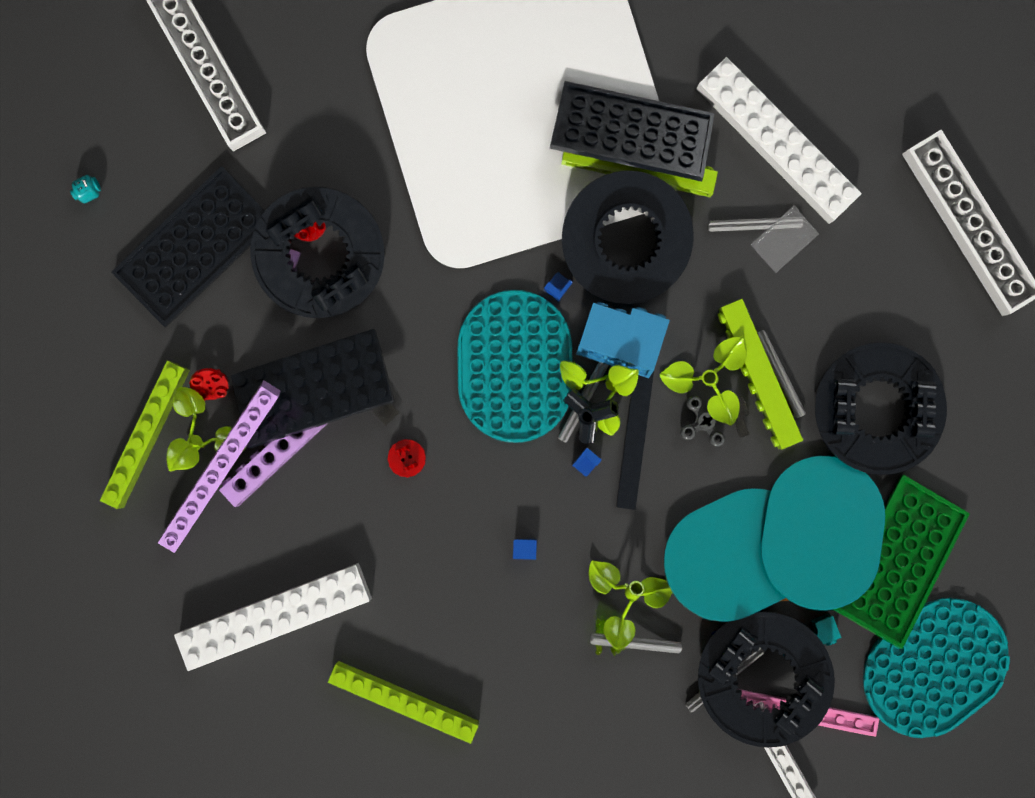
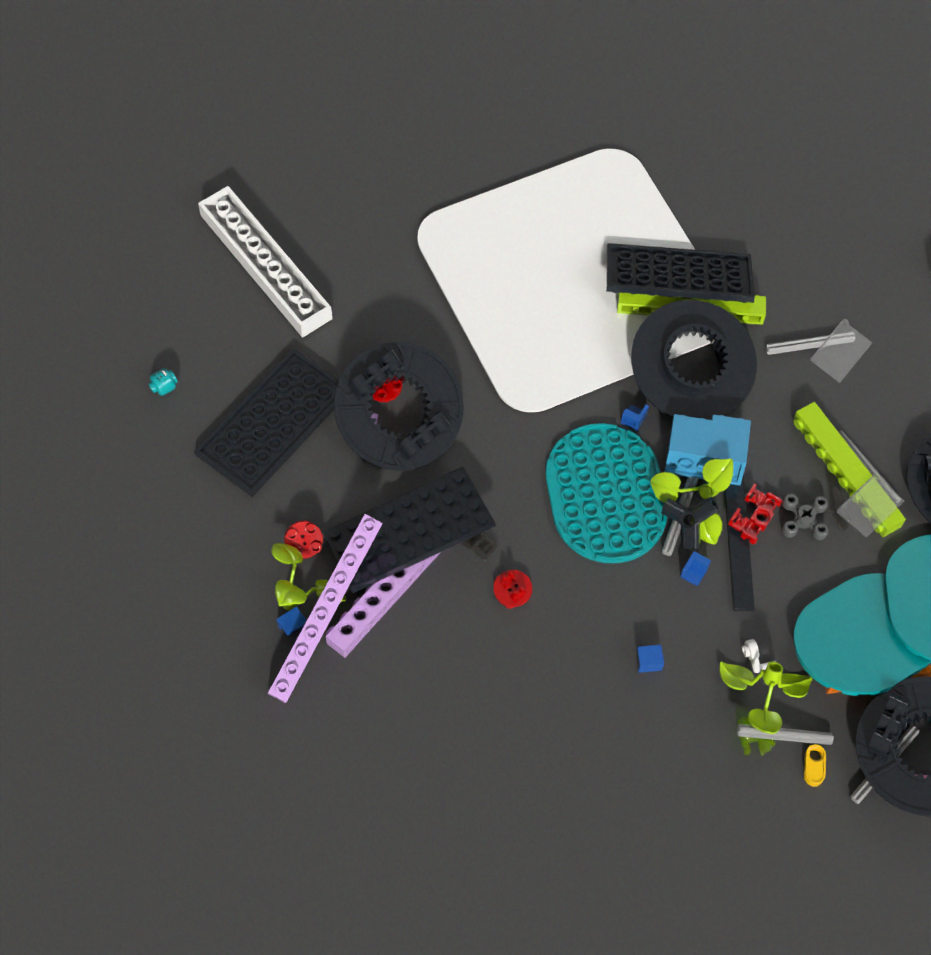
camera: 10 degrees left, 25 degrees down
(144, 435) = (241, 597): lime brick -> none
(188, 474) = (291, 621): none -> blue panel
(273, 617) = (396, 759): white brick -> none
(404, 702) = (551, 829): lime brick -> none
(623, 555) = (751, 651): none -> white plate
(646, 424) = (752, 527): none -> red piece
(658, 675) = (814, 769): none -> yellow piece
(725, 406) = (814, 450): lime plant -> none
(771, 422) = (870, 505): none -> clear piece
(778, 140) = (815, 271): white brick -> none

